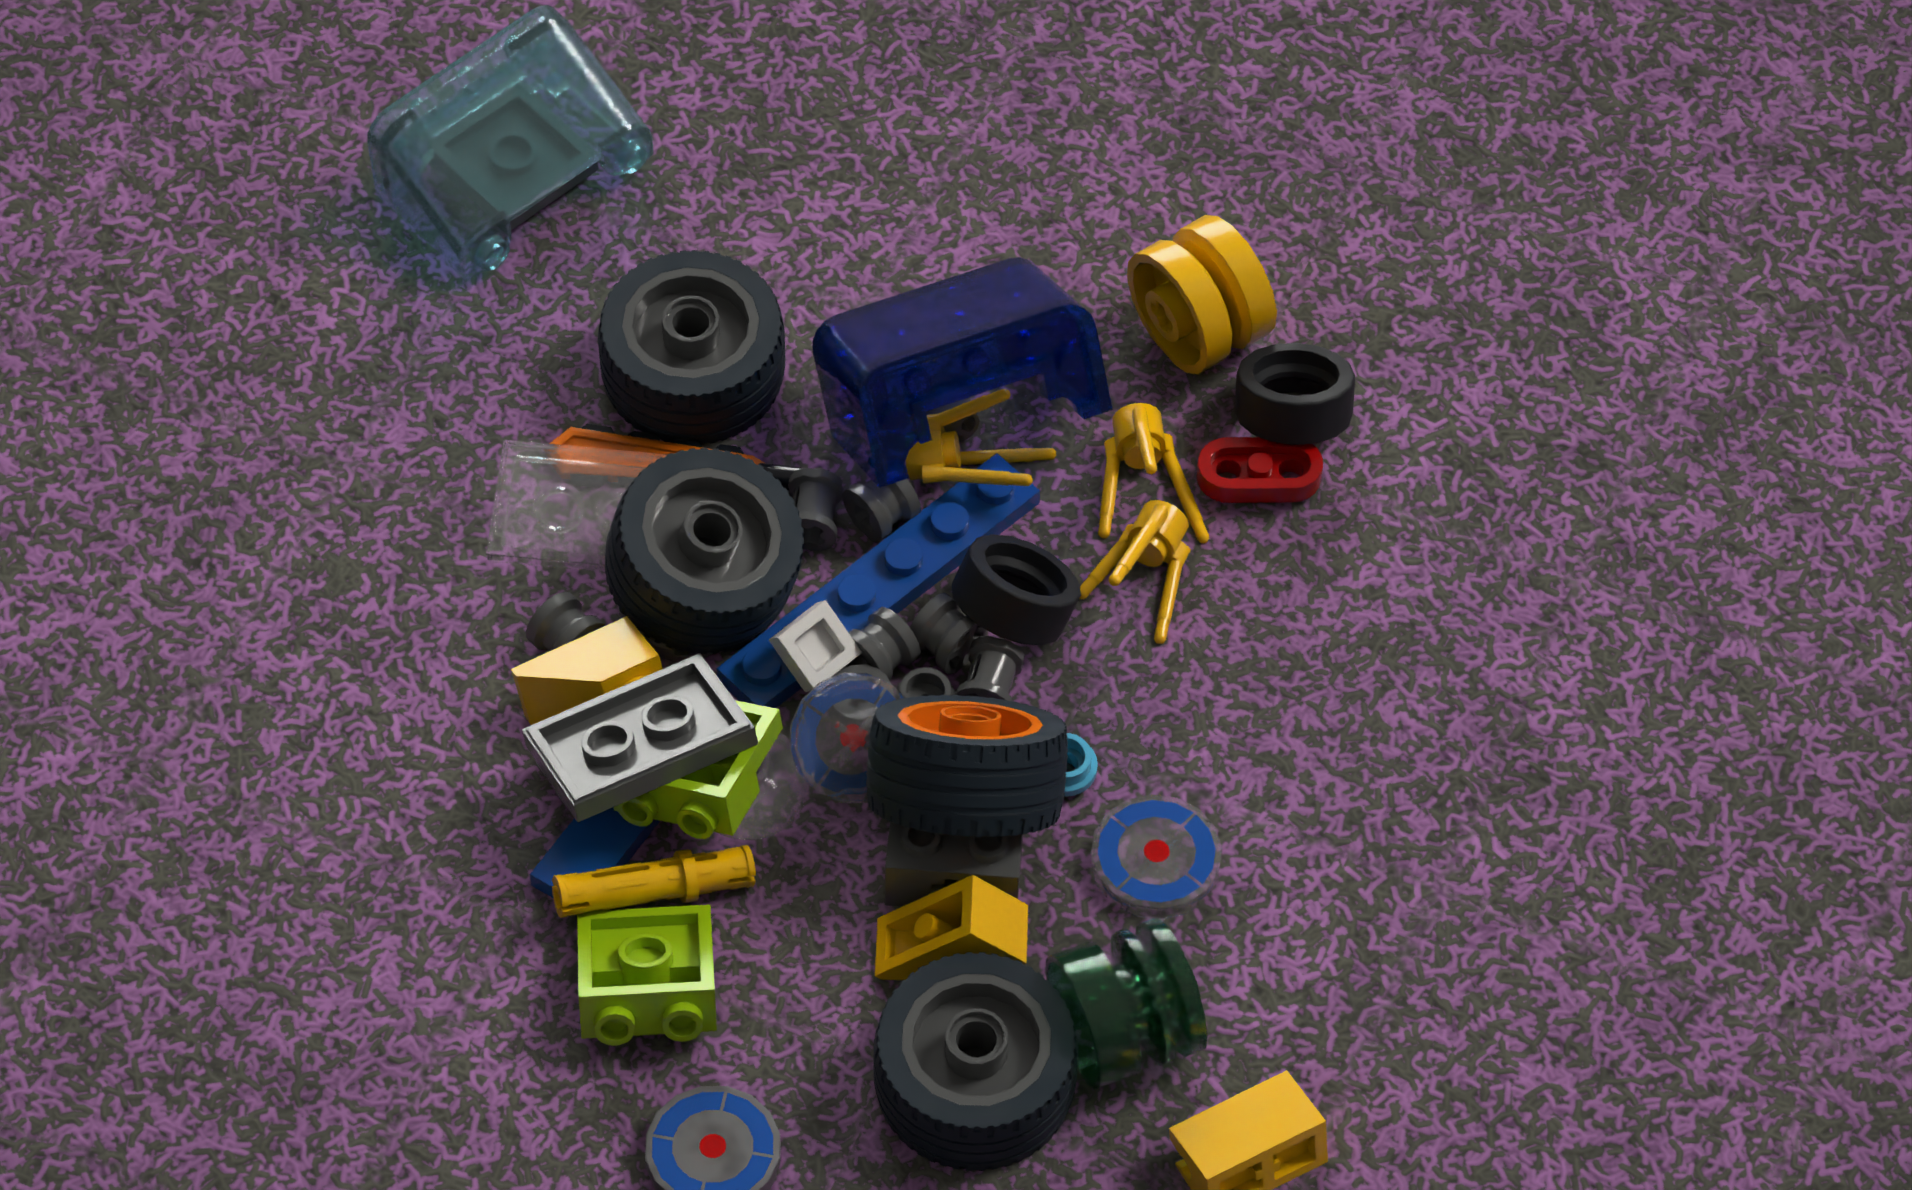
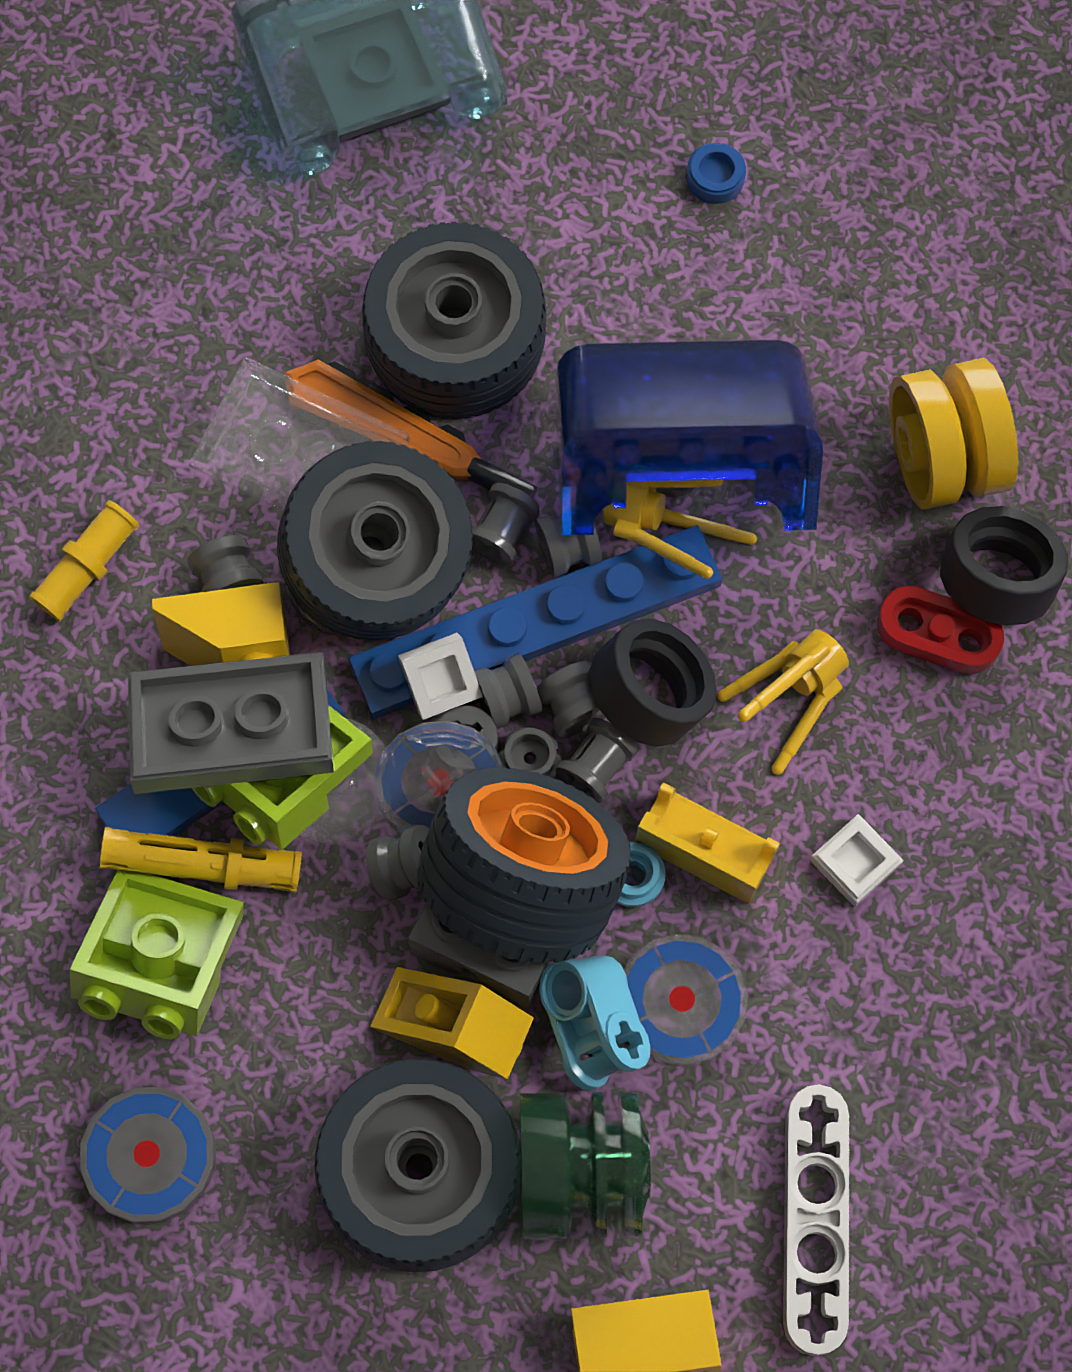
camera: 20 degrees right, 15 degrees up
(422, 667) = (84, 560): none -> yellow pin
(848, 819) = (395, 862): none -> dark grey wheel
(880, 152) = (716, 173): none -> blue tile
(1093, 895) = (593, 1015): none -> medium azure piece
(1125, 718) = (706, 844): none -> yellow hinge
(1142, 444) = (837, 561): yellow plant -> none
(1266, 688) = (856, 860): none -> white tile
(1365, 991) = (823, 1219): none -> white beam

